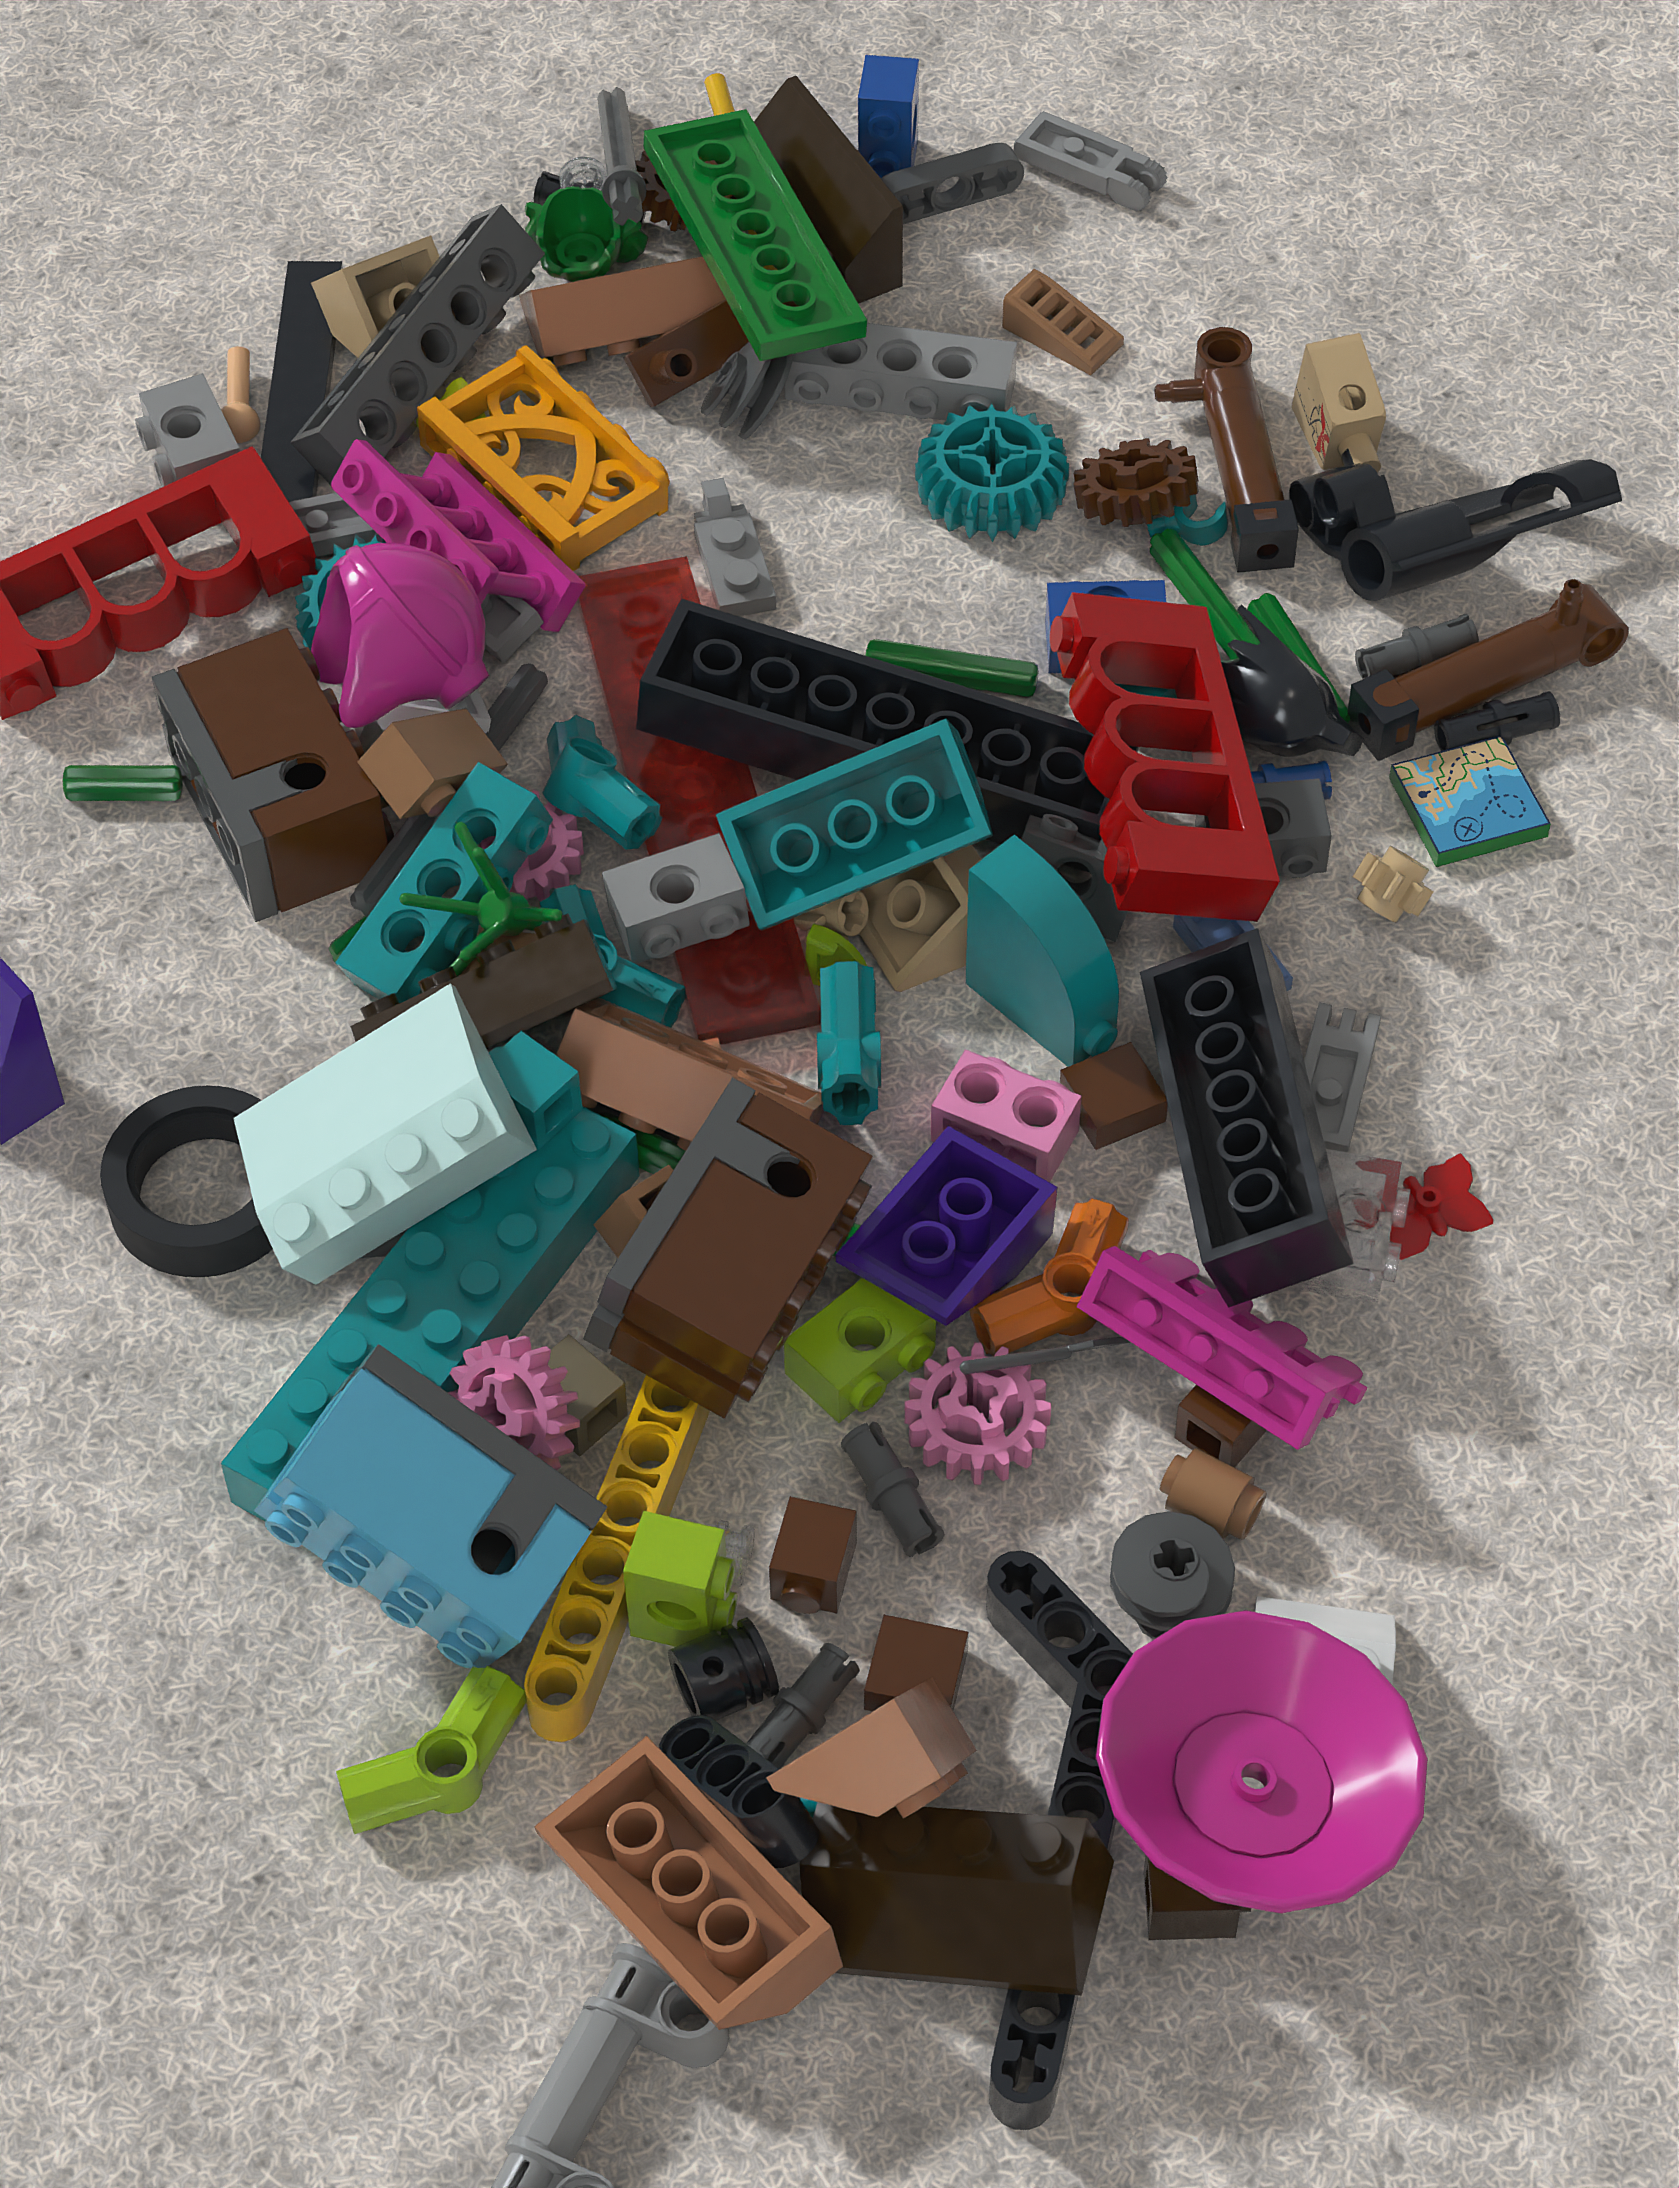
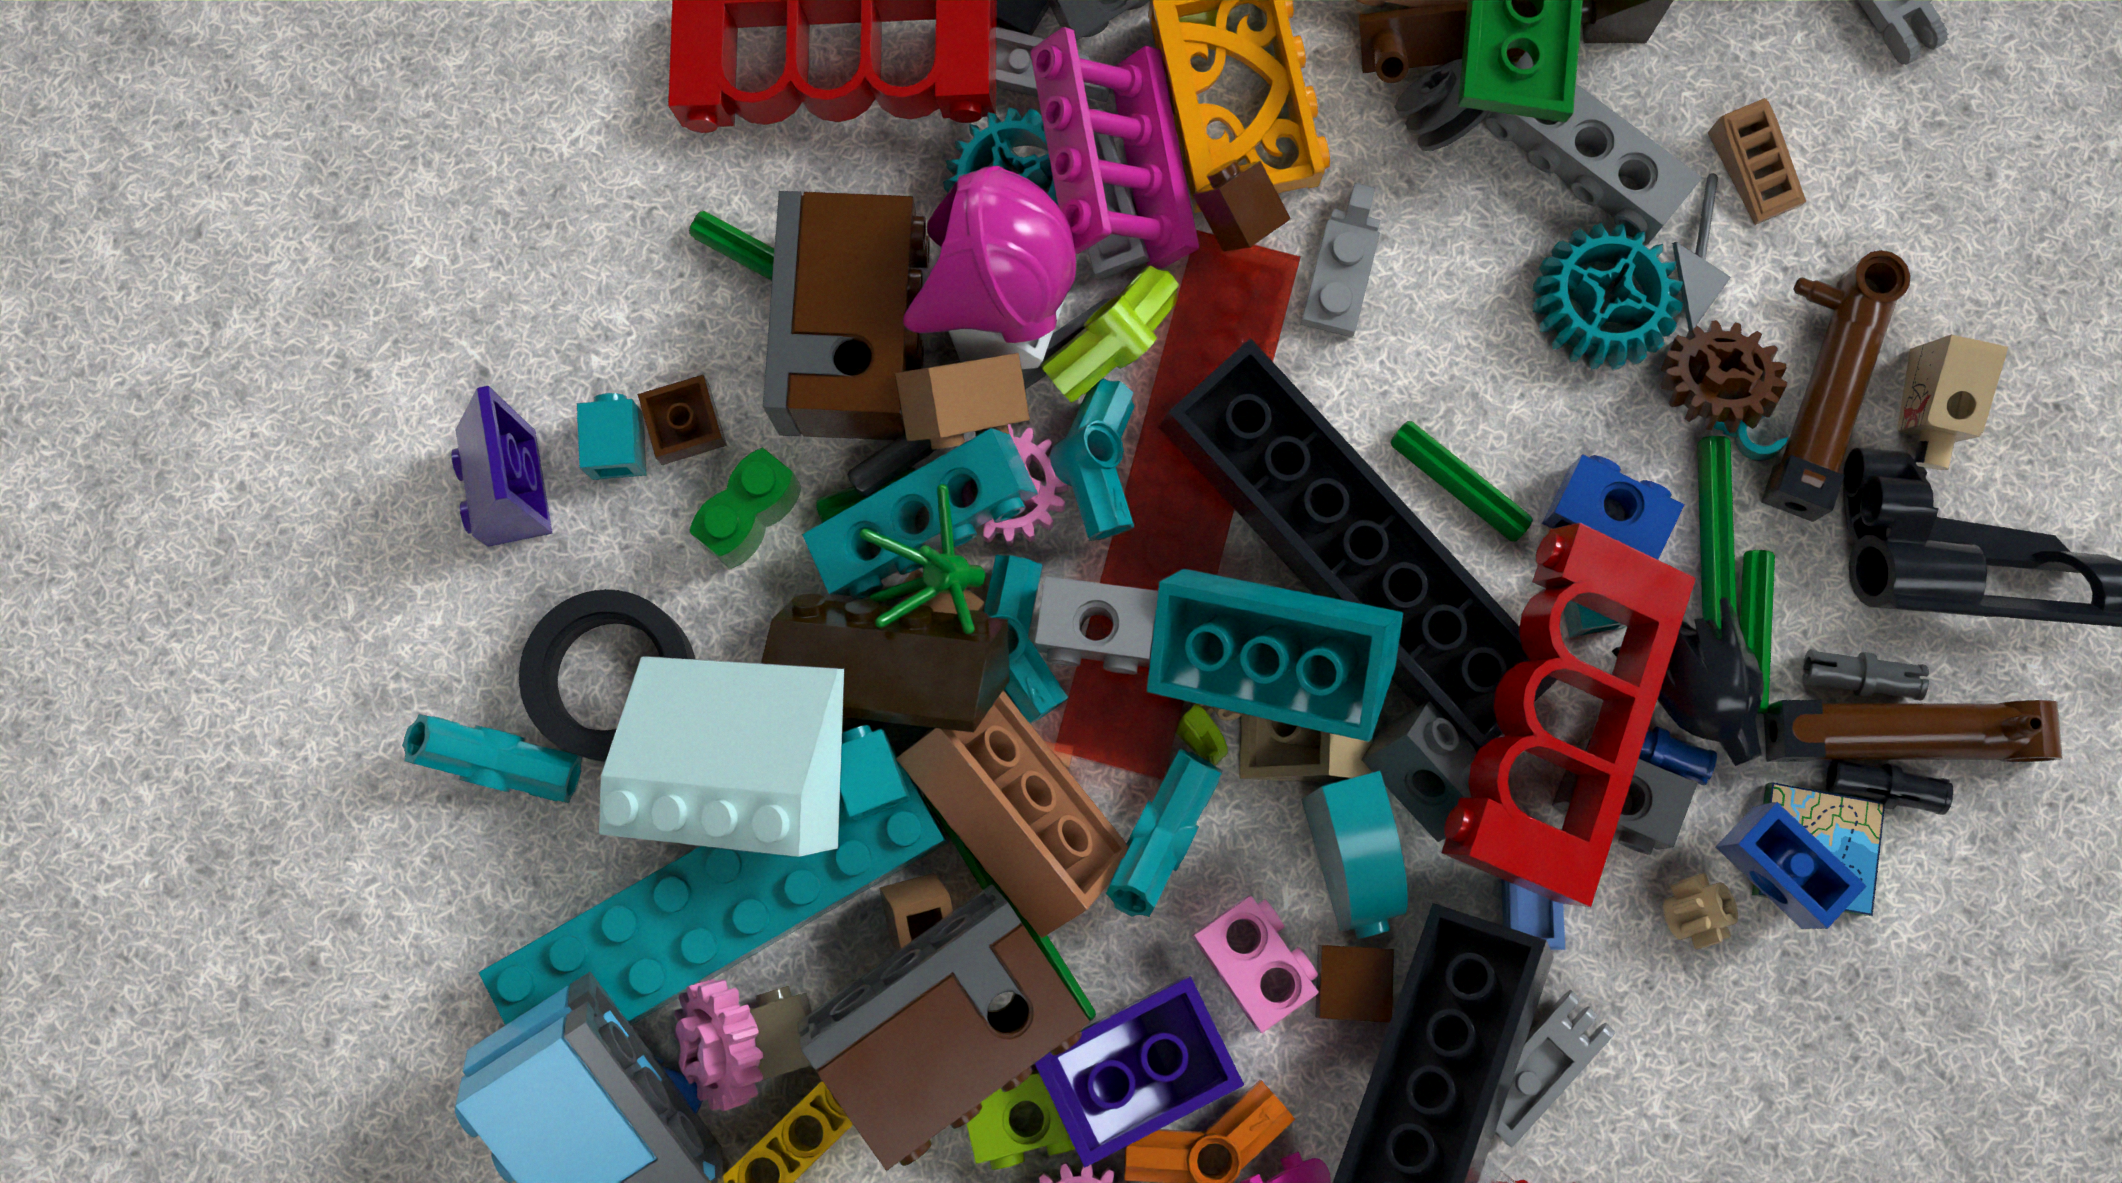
camera: 30 degrees right, 25 degrees up
(86, 984) = (611, 437): none -> teal brick
(119, 1298) = (492, 758): none -> teal piece
(149, 943) = (682, 419): none -> reddish brown piece
(262, 977) = (736, 519): none -> green brick
(543, 685) = (1114, 333): none -> lime piece
(605, 524) = (1241, 205): none -> reddish brown brick
(1072, 428) = (1700, 279): none -> piece
(1442, 796) = (1791, 866): none -> blue brick

